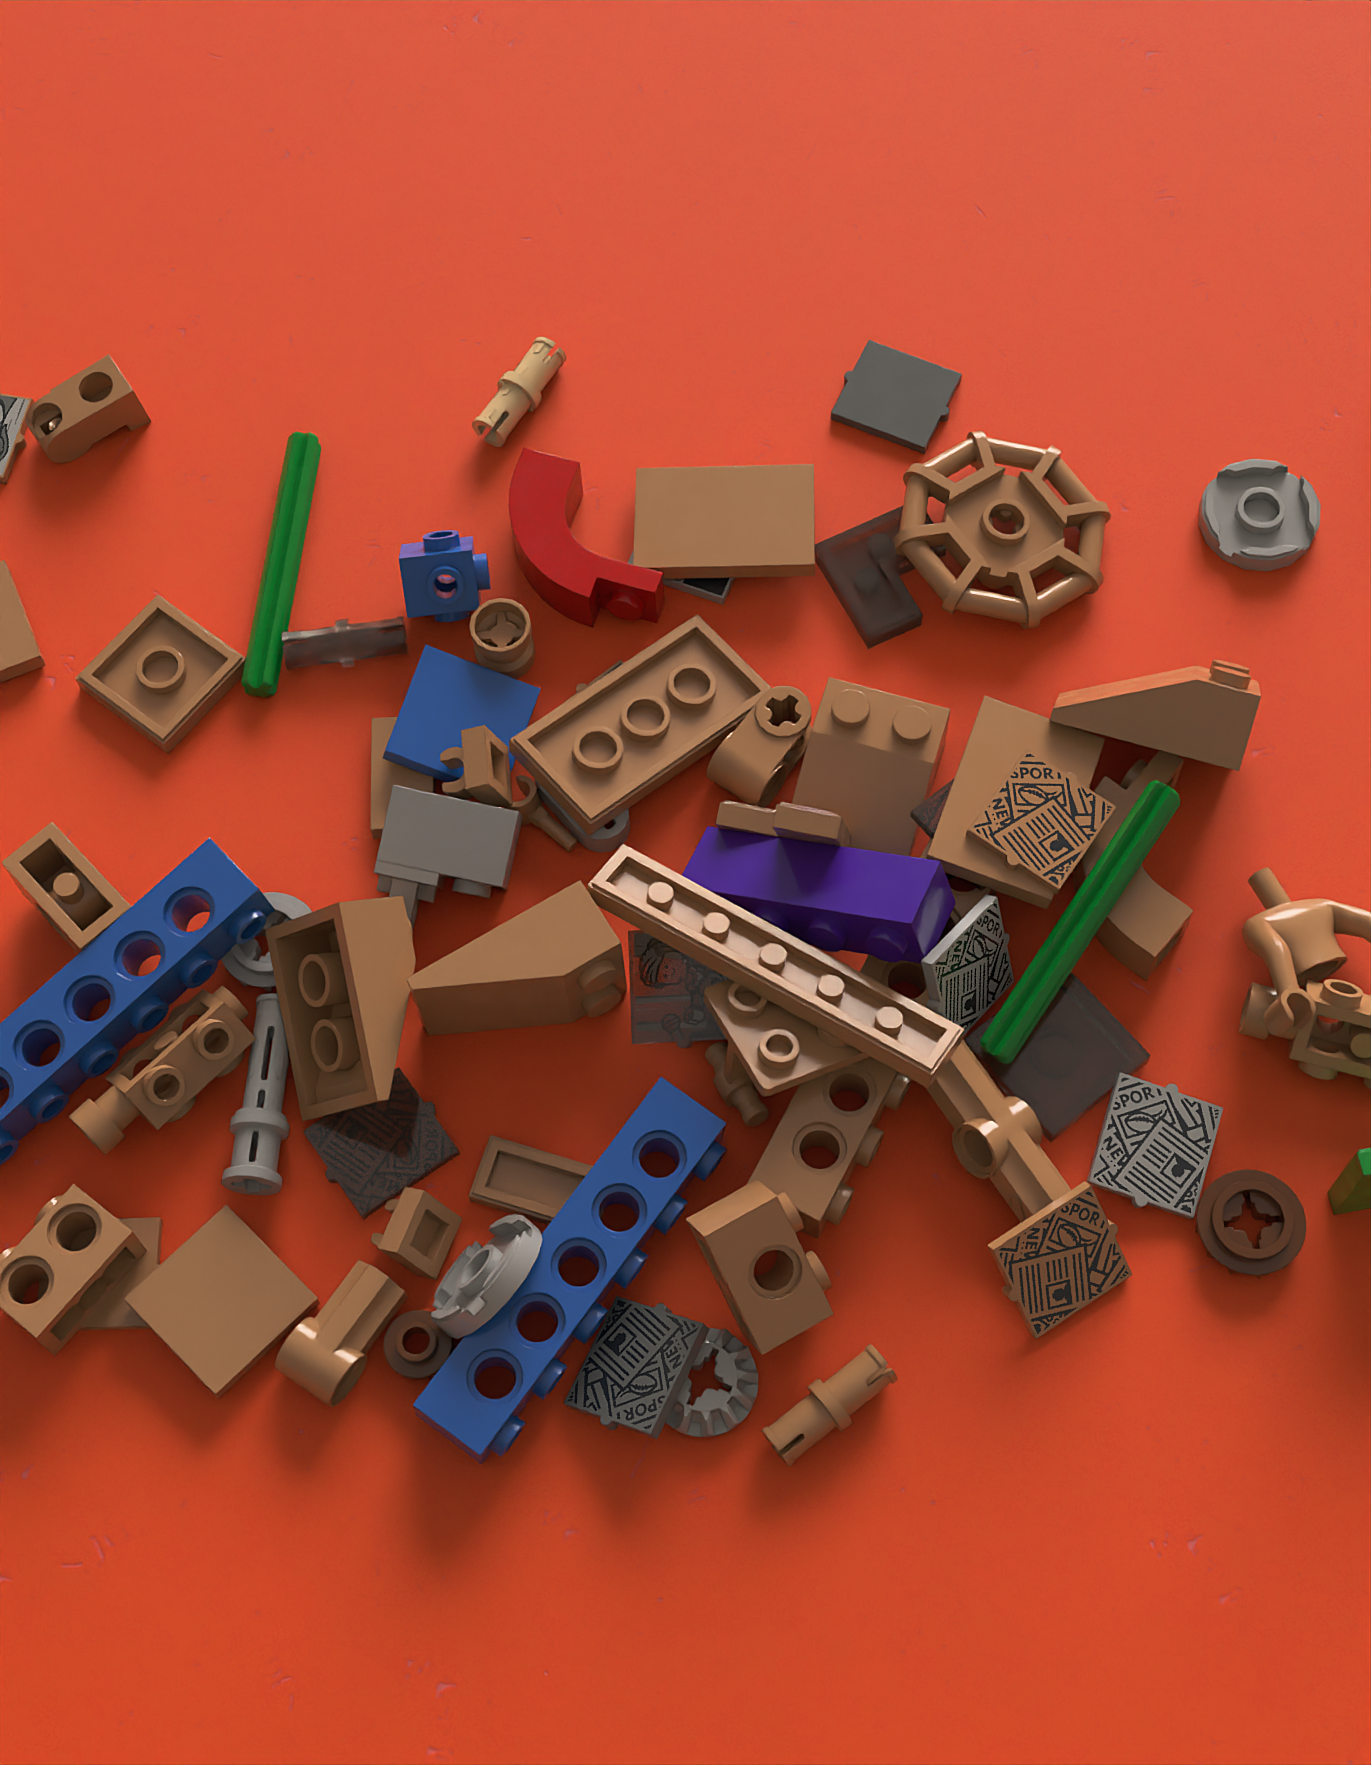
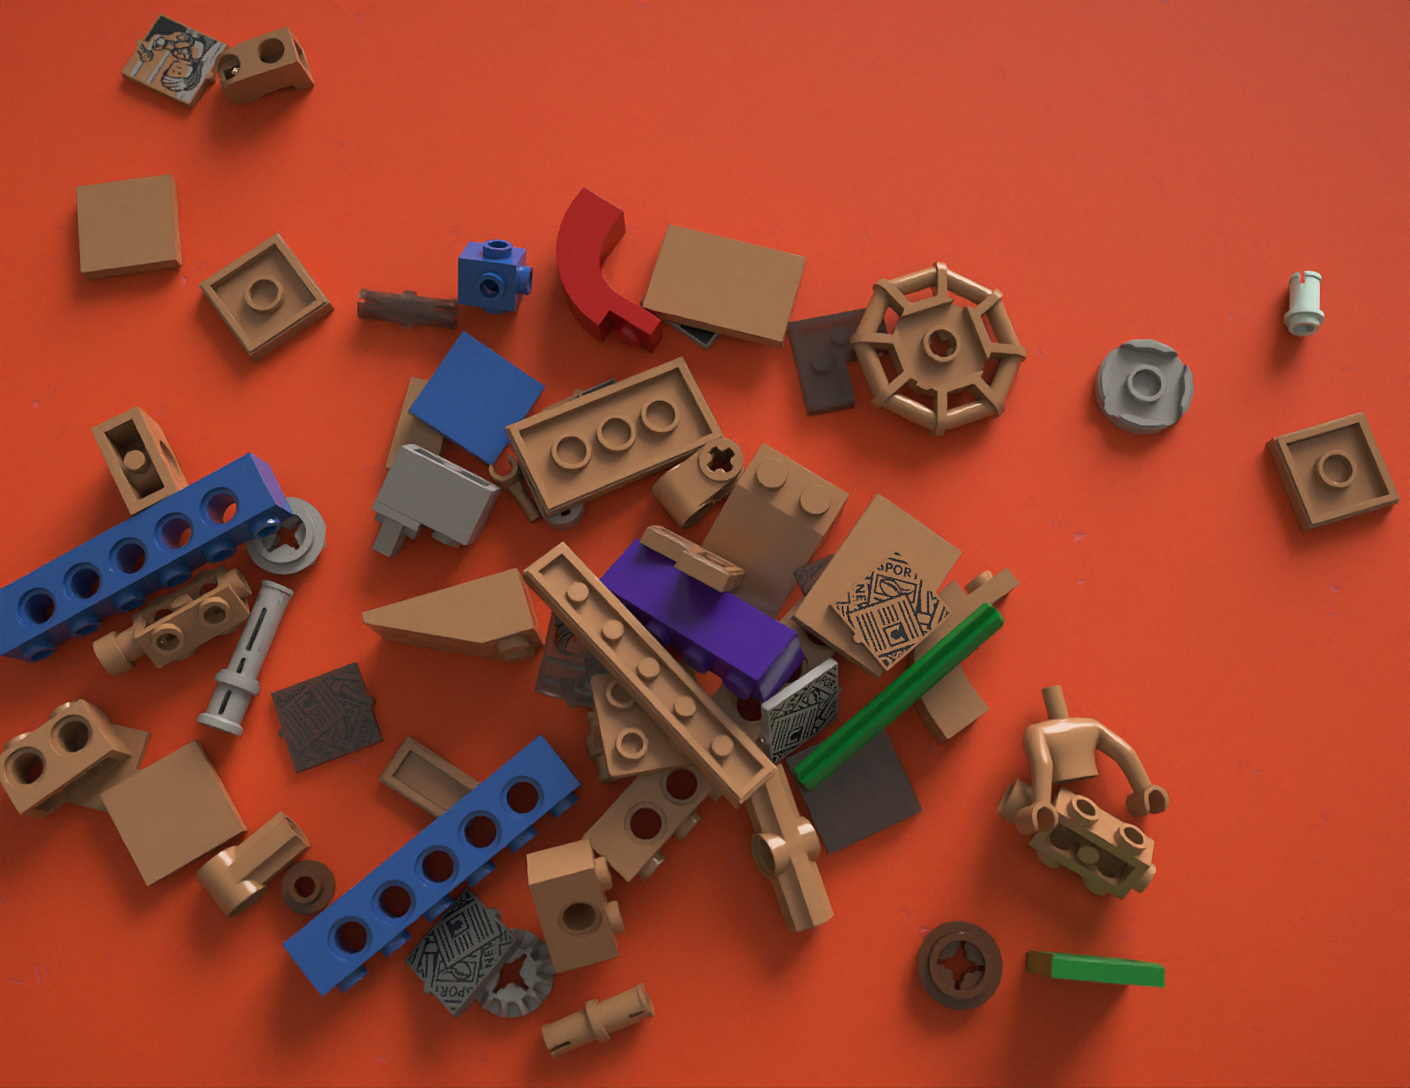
camera: 10 degrees right, 10 degrees up
(281, 565) = (378, 230): green axle -> none
(343, 1000) = (319, 607): medium nougat slope -> none
(418, 1232) = (330, 801): medium nougat tile -> none
(485, 768) = (478, 446): medium nougat tile -> none
(486, 1276) = (366, 856): light grey tile -> none
(496, 627) = (525, 328): medium nougat wheel -> none
(519, 391) = (598, 134): tan pin -> none
(896, 396) = (889, 213): dark grey piece -> none
(1060, 1259) = (803, 958): medium nougat piece -> none
(1154, 1145) = (904, 883): light grey piece -> none
(1177, 711) = (1021, 541): medium nougat slope -> none

